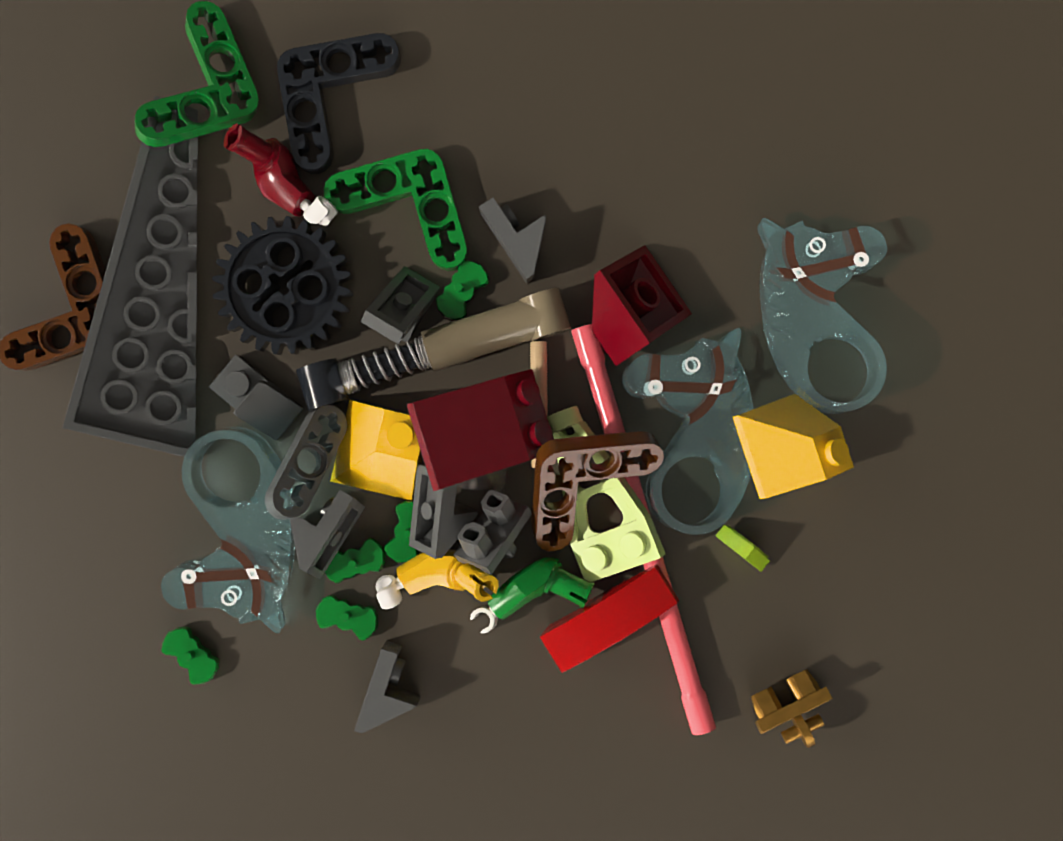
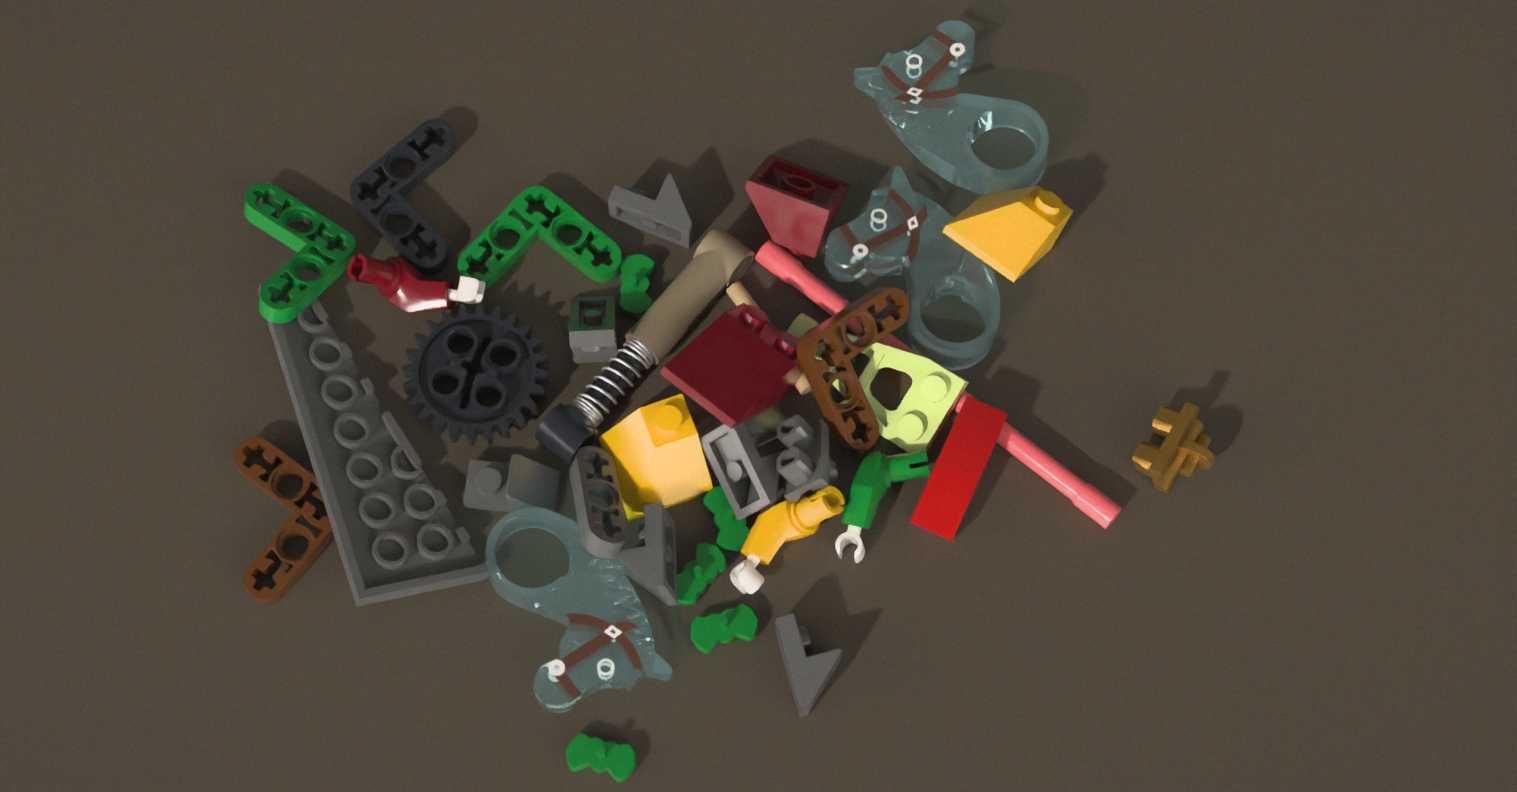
camera: 35 degrees left, 20 degrees down
(743, 547) = (1033, 342): lime tile -> none

